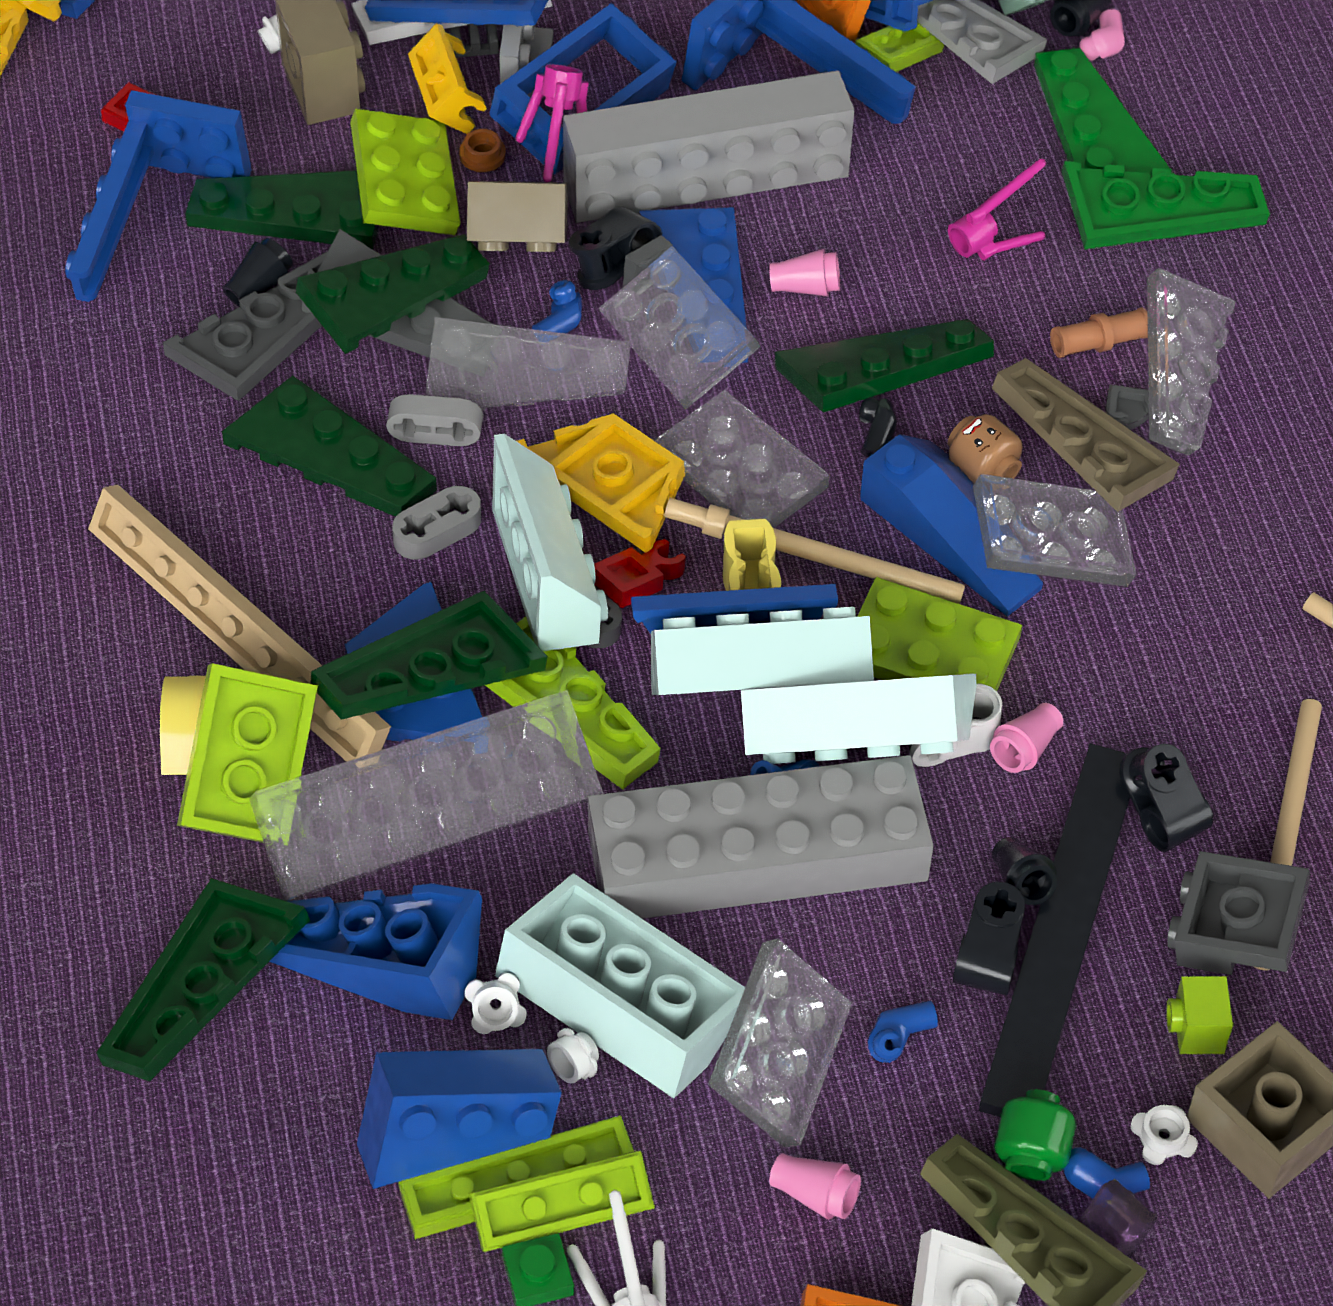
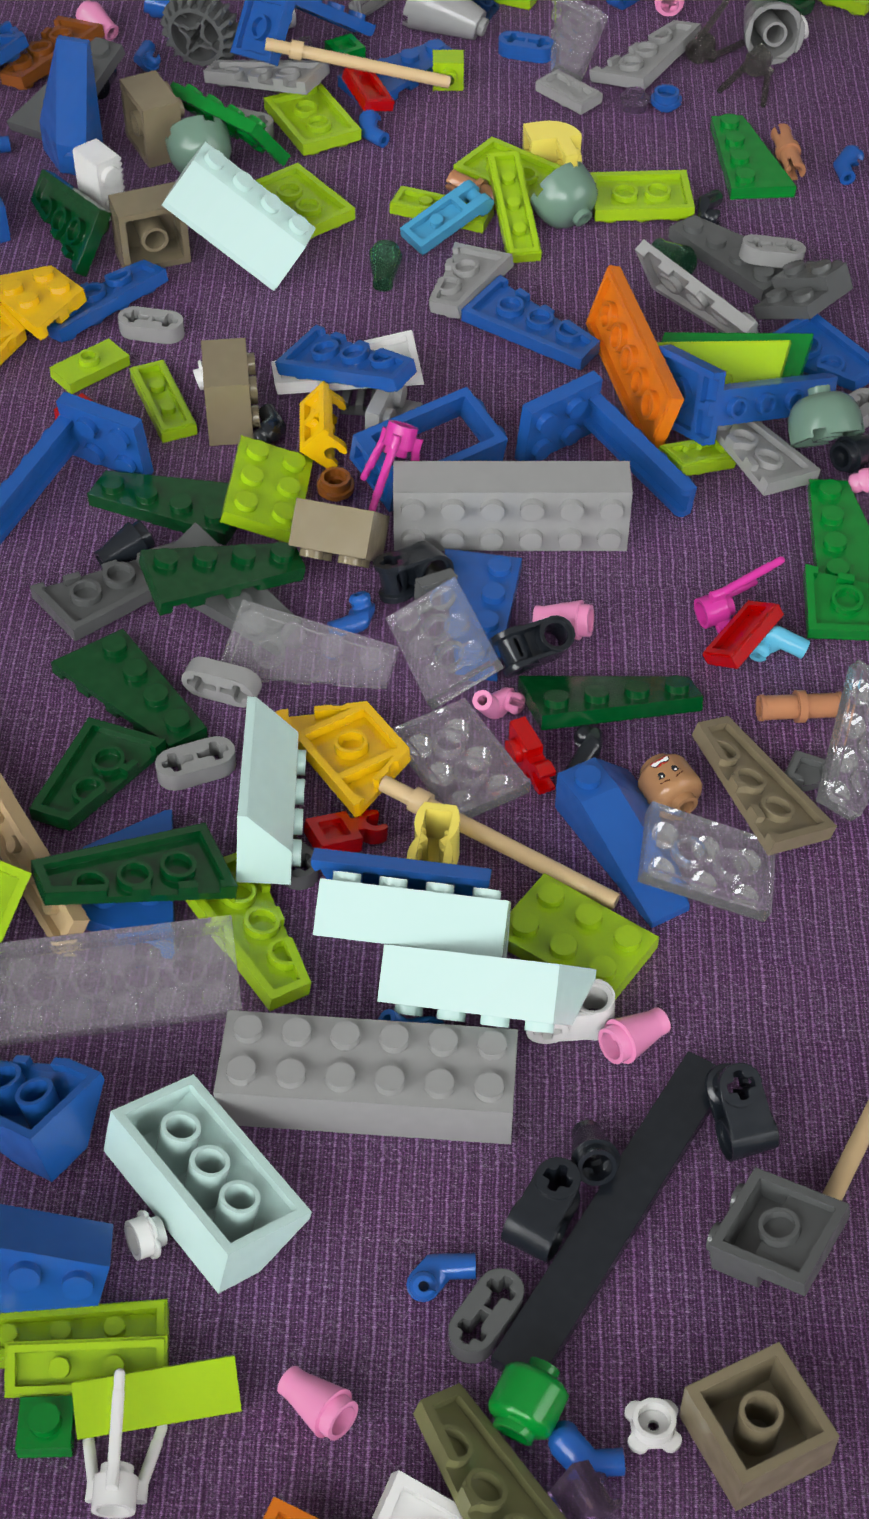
camera: 15 degrees right, 5 degrees down
(122, 44) = (89, 366): none -> lime plate
(231, 75) = (163, 401): none -> lime tile
(323, 553) = (92, 771): none -> dark green wing
(380, 87) = (272, 425): none -> black arm
(495, 1019) = (84, 1185): white plate -> none
(653, 1214) = (158, 1396): none -> lime tile
(758, 390) = (497, 704): none -> bright pink arm
(779, 315) = (526, 646): none -> black piece
(780, 1043) = (323, 1264): clear plate -> none
(817, 441) = (528, 754): none -> red plate
(971, 1065) = (477, 1308): none -> dark grey beam
(1015, 258) = (742, 634): none -> red tile
(1050, 257) = (780, 639): none -> medium azure arm
(1201, 1015) = (717, 1319): lime plate -> none

